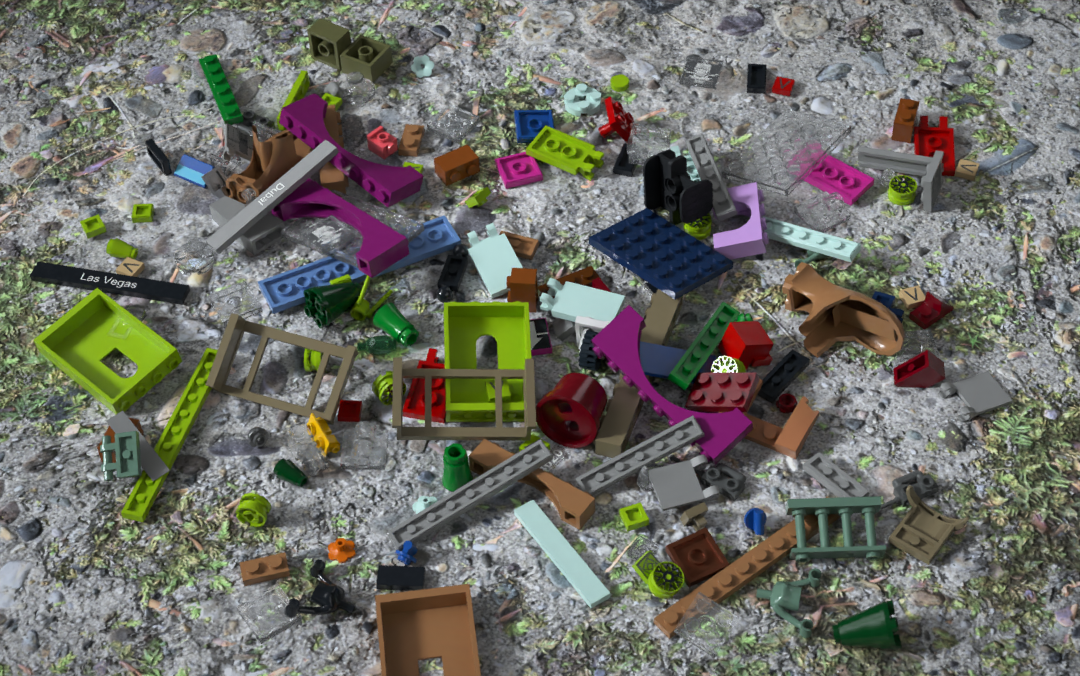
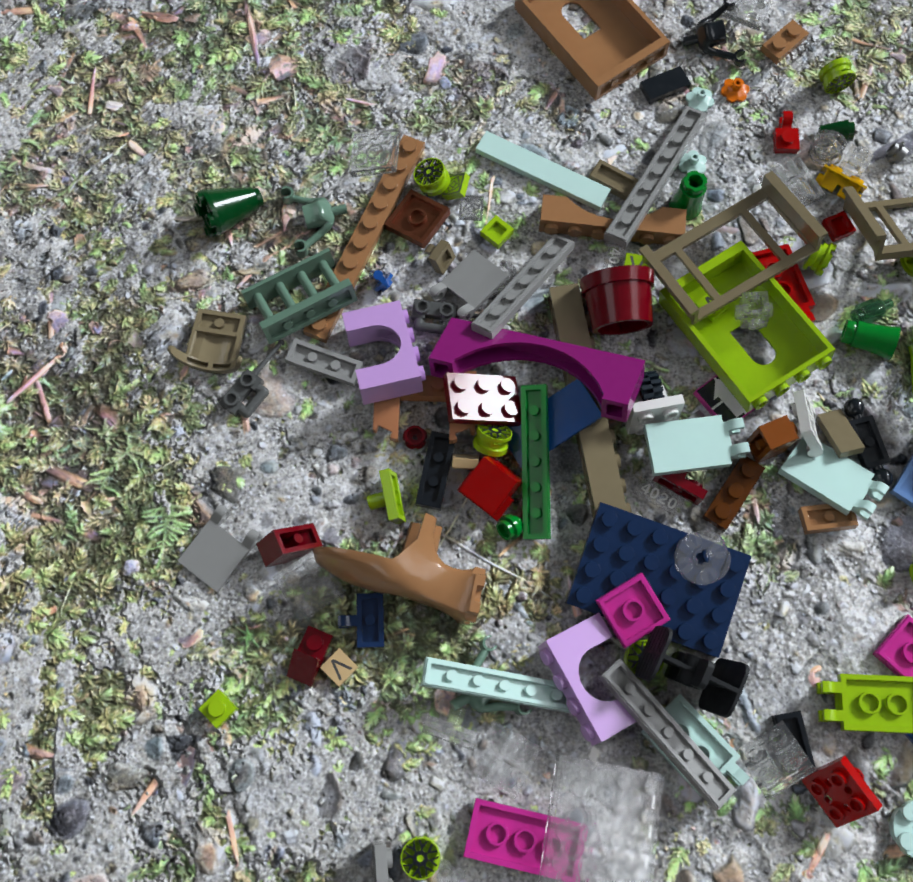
camera: 150 degrees right, 25 degrees up
(333, 490) = (785, 137): none -> red plate
(378, 555) = (700, 99): none -> light aqua plant
(406, 555) = (674, 103): blue plate -> none
(469, 282) = (840, 433): none -> dark tan tile
(476, 356) = (754, 310): none -> clear brick
(497, 279) = (806, 427): none -> white plate
(504, 520) = (613, 178): none -> dark tan tile
(626, 239) = (716, 551): none -> clear plate
(691, 238) = (632, 610): none -> dark pink tile
(757, 366) = (464, 461): none -> tan tile
(779, 425) = (399, 375): none -> lavender arch
(828, 372) = (389, 497): none -> lime tile
(850, 233) = (451, 729): none -> clear tile
(1011, 307) = (218, 708): none -> lime plate

